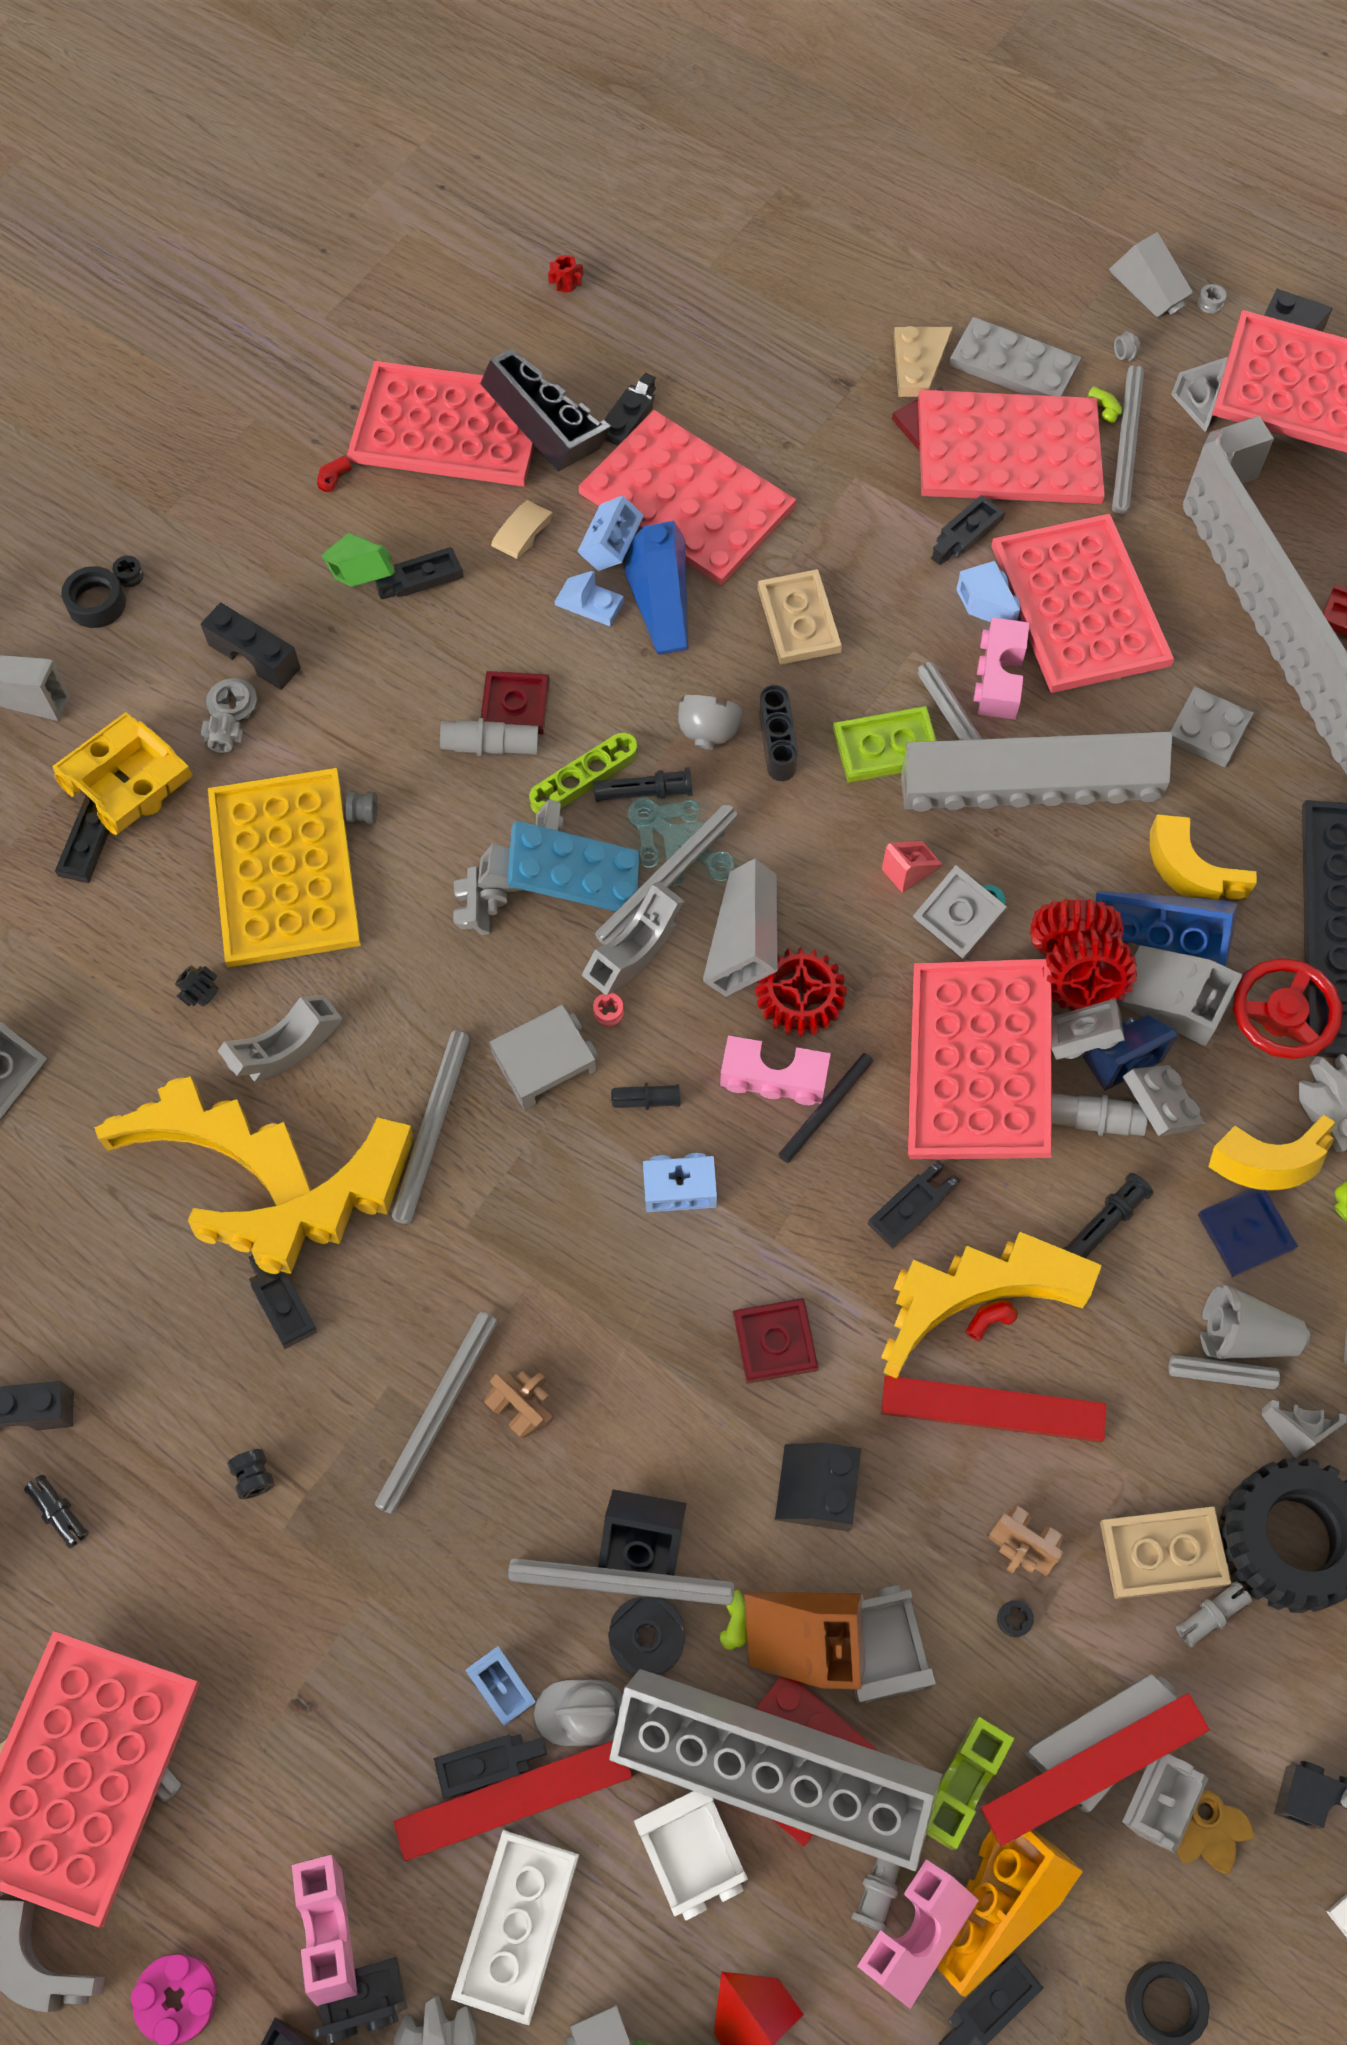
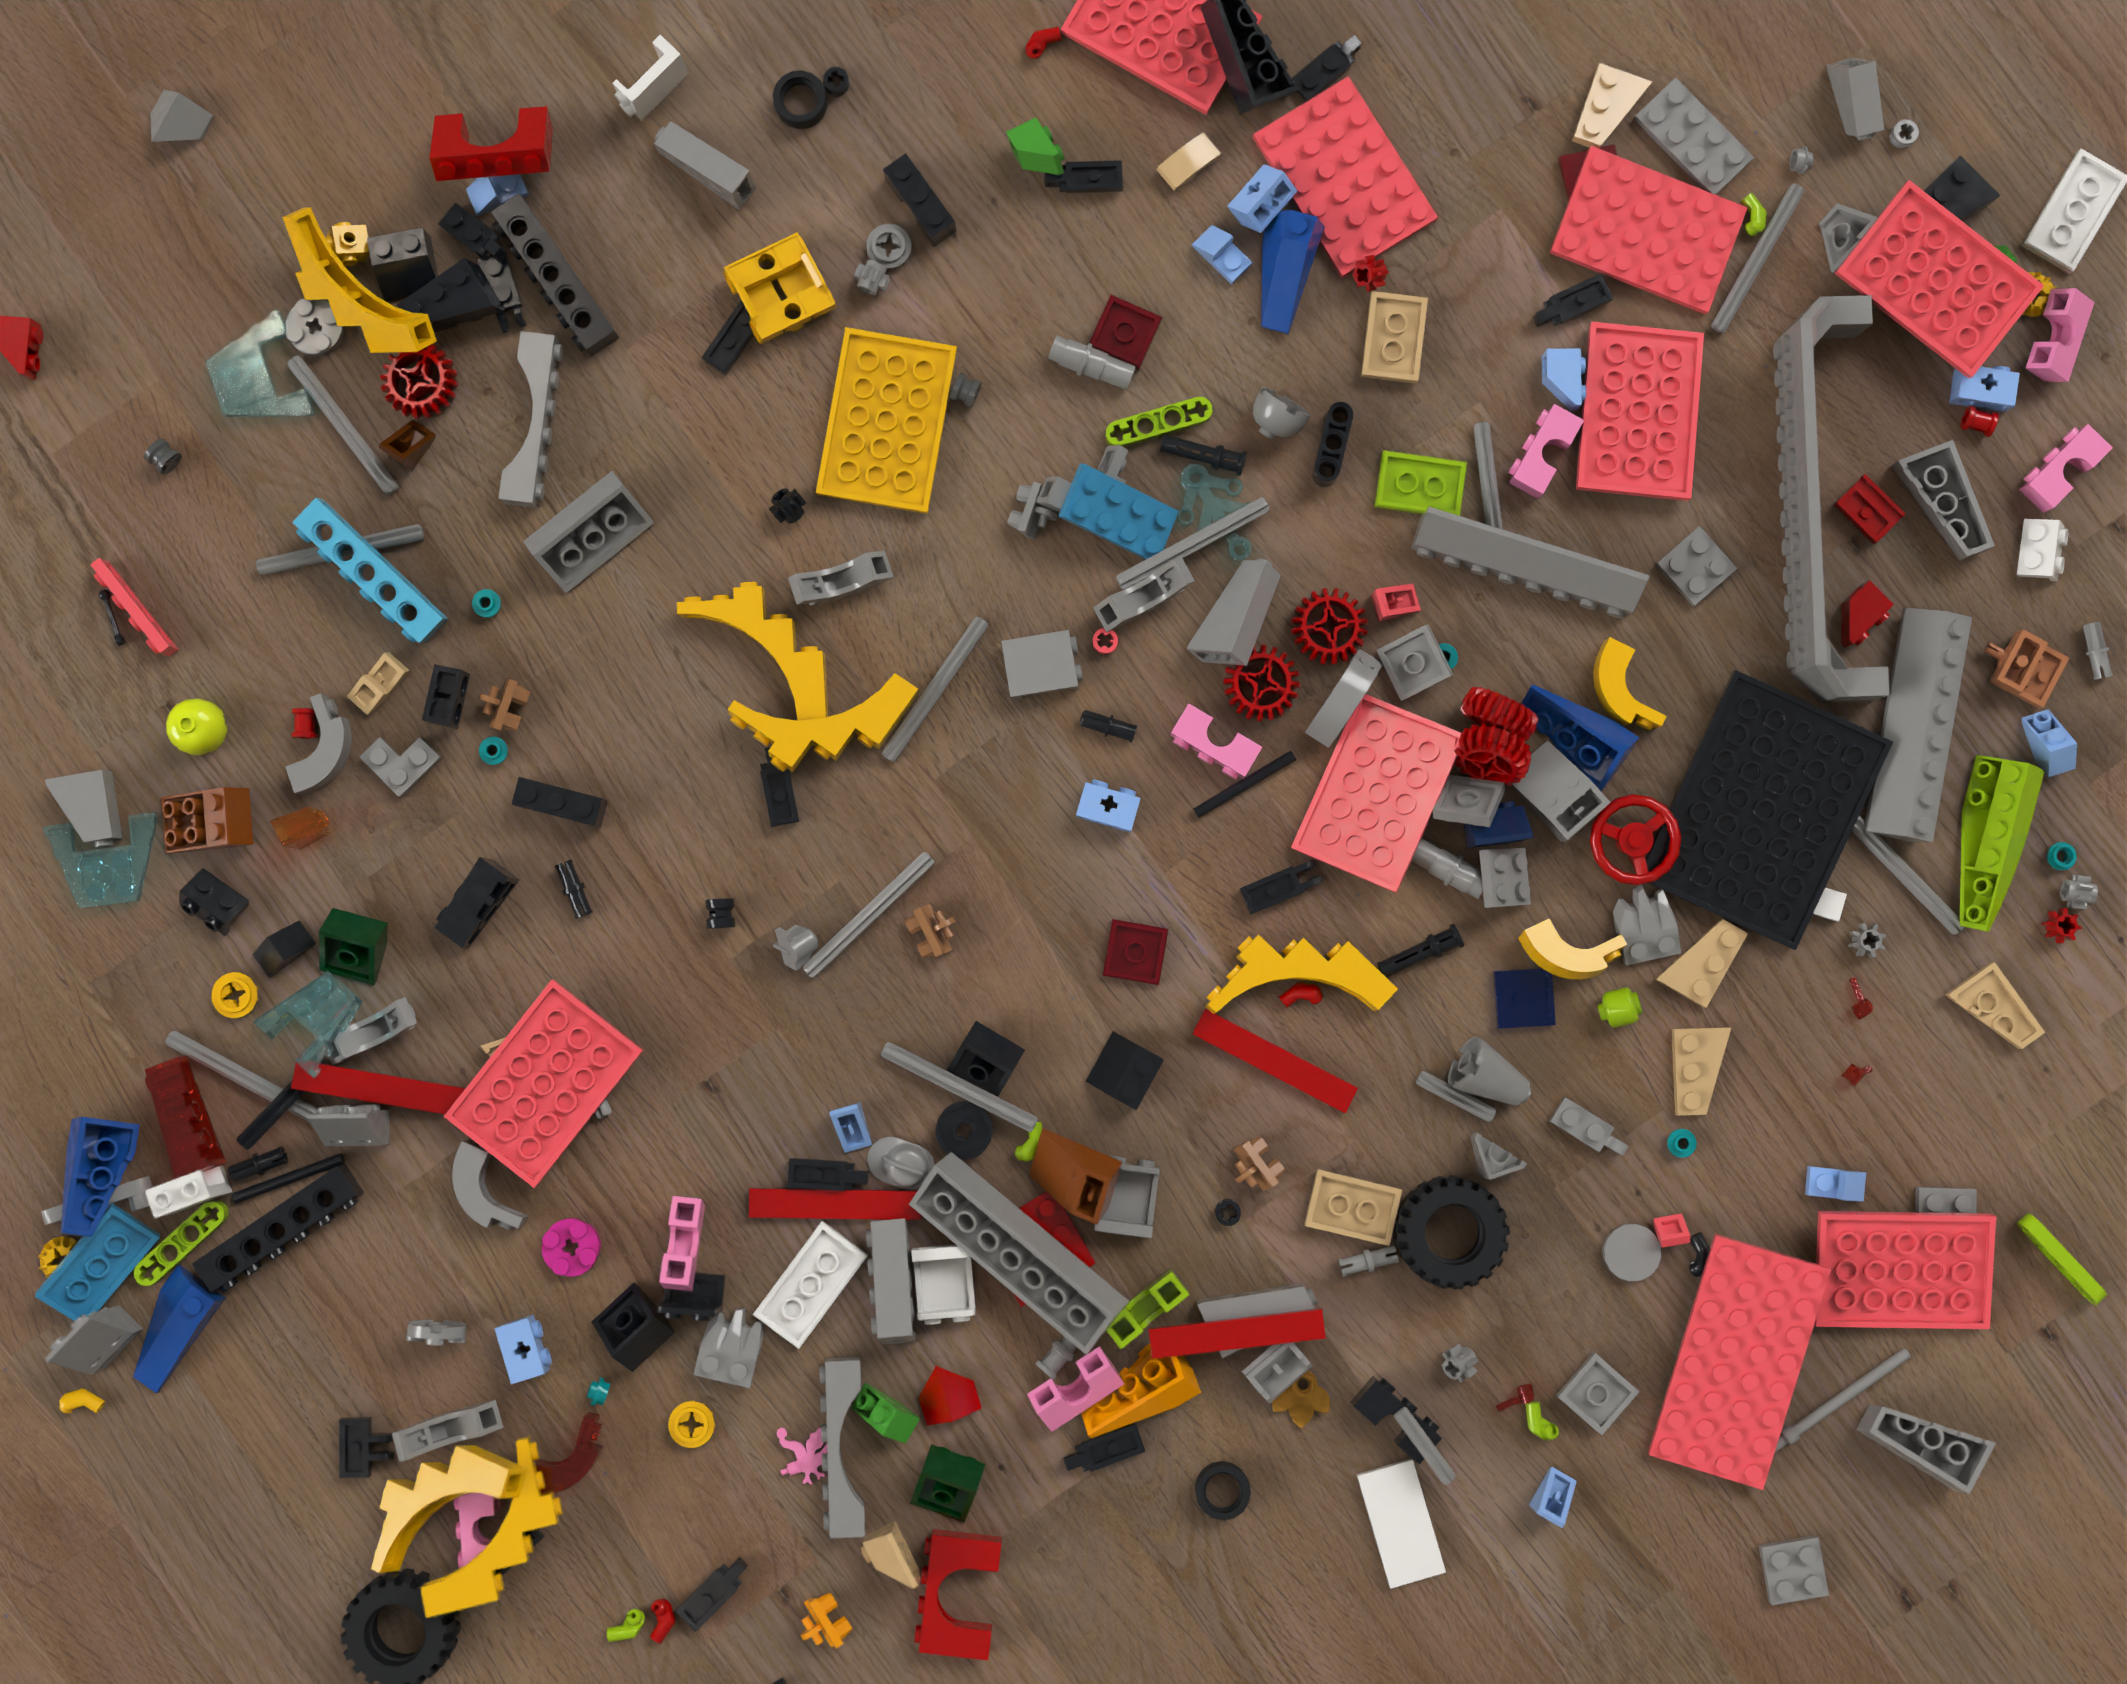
camera: 20 degrees right, 20 degrees up
(357, 1478) = (795, 945): none -> light grey piece
(624, 1878) = (891, 1281): none -> light grey wedge
(749, 565) = (1370, 273): none -> red gear
(853, 892) = (1330, 639): none -> red gear
(899, 976) = (1344, 698): none -> light grey arch

